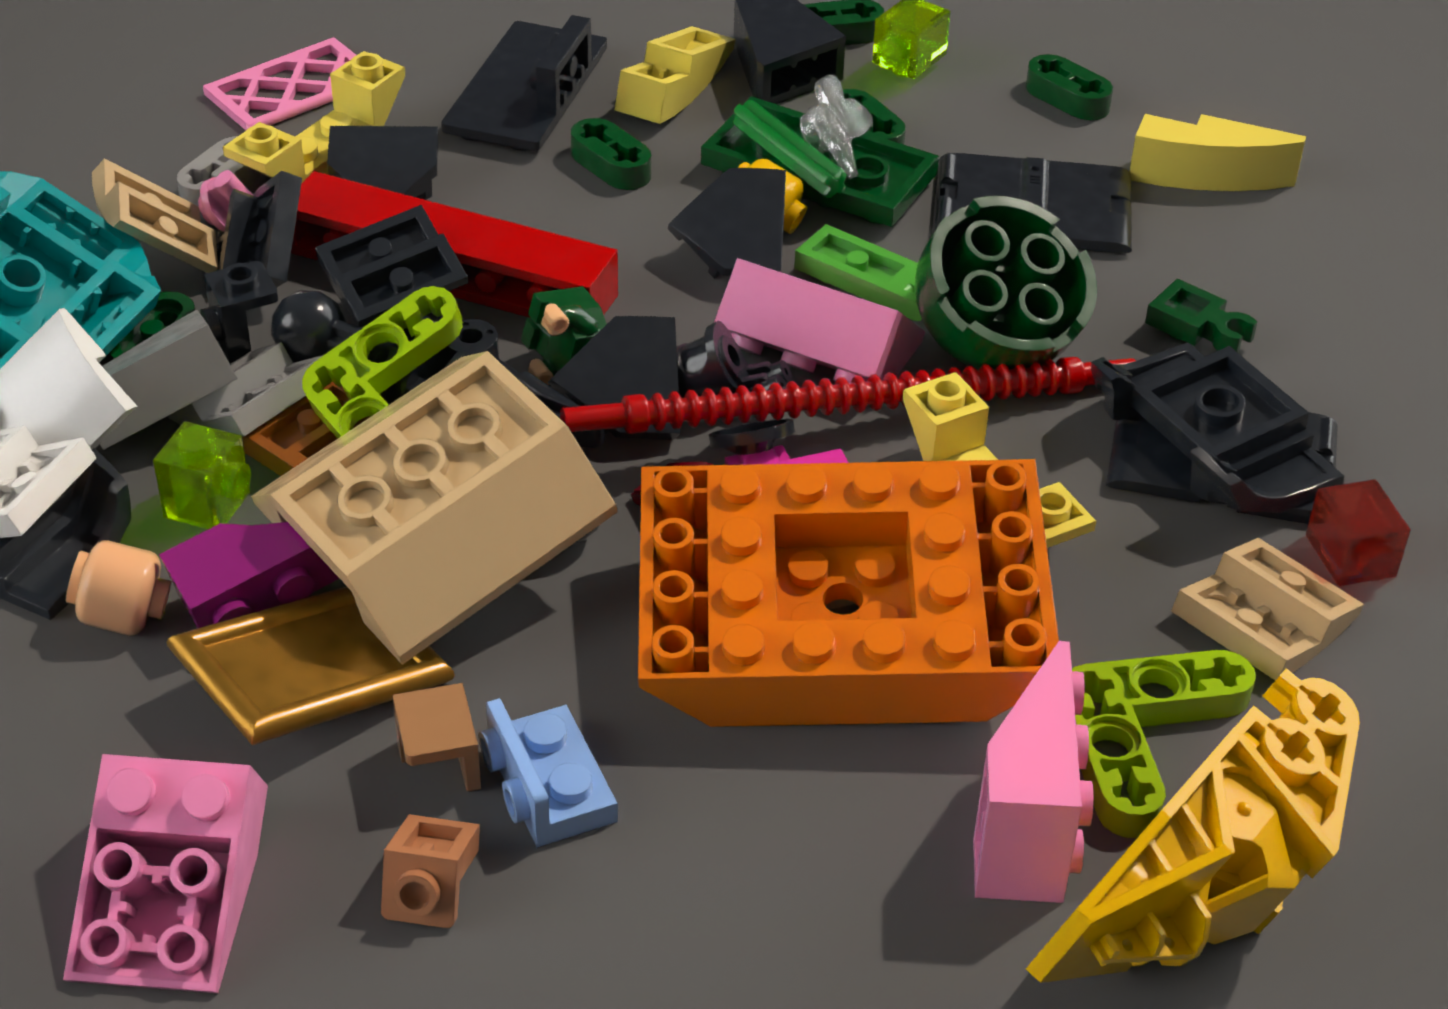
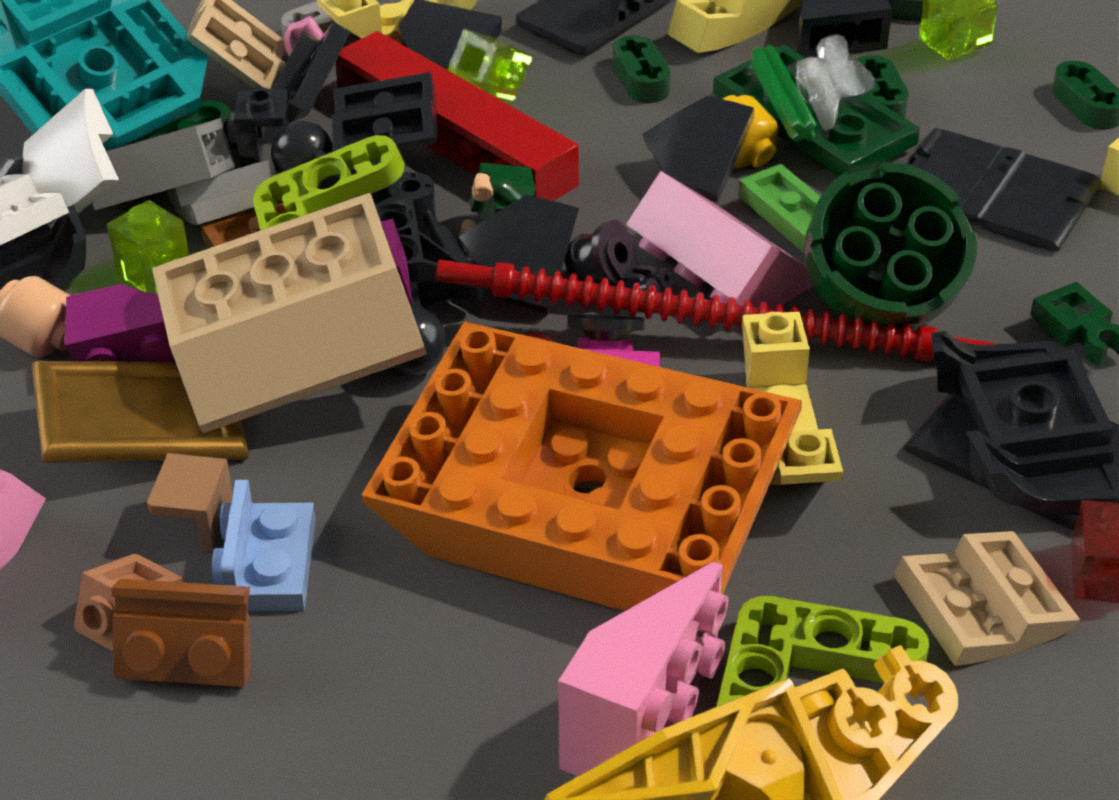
camera: 25 degrees right, 0 degrees up
(459, 181) = (489, 64): none -> clear neon green brick
(527, 880) = (181, 632): none -> dark orange plate

